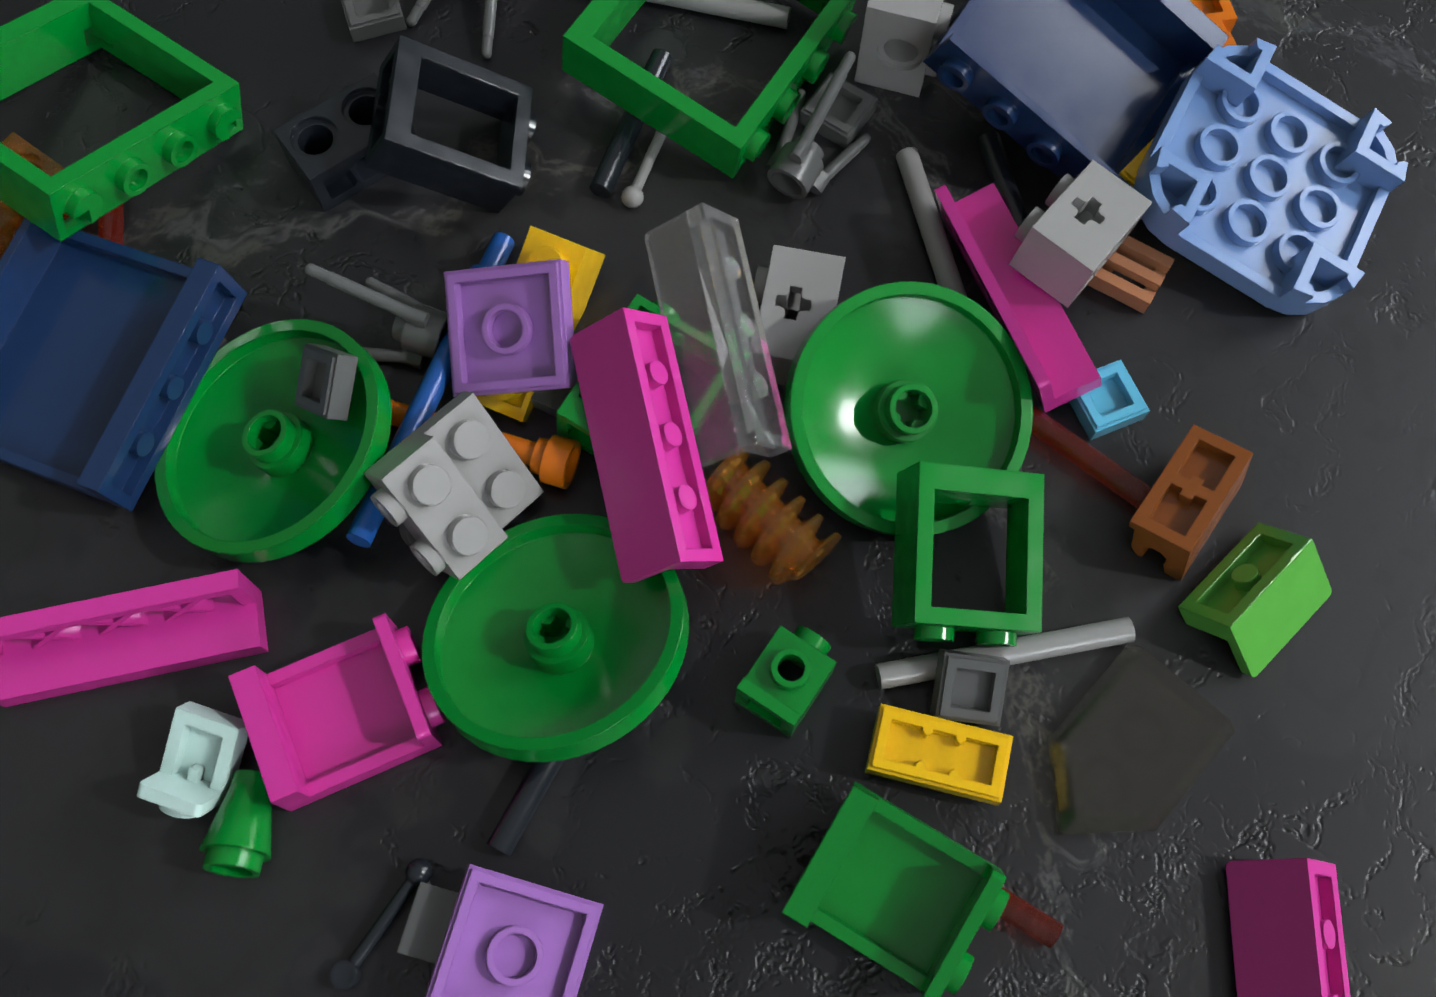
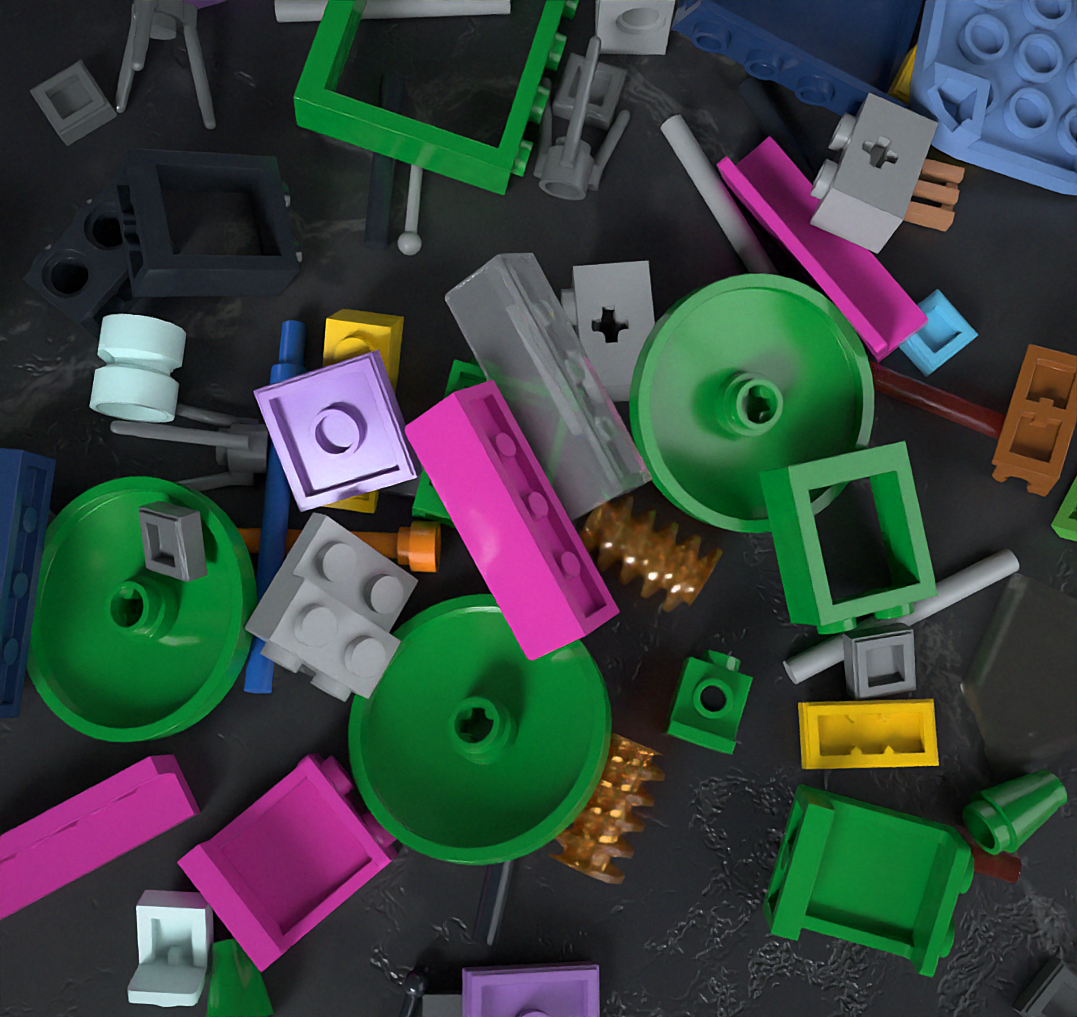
camera: 15 degrees left, 10 degrees up
(350, 232) = (138, 368): none -> light aqua wheel
(658, 747) = (608, 812): none -> clear orange piece
(1066, 871) = (1012, 811): none -> green cone

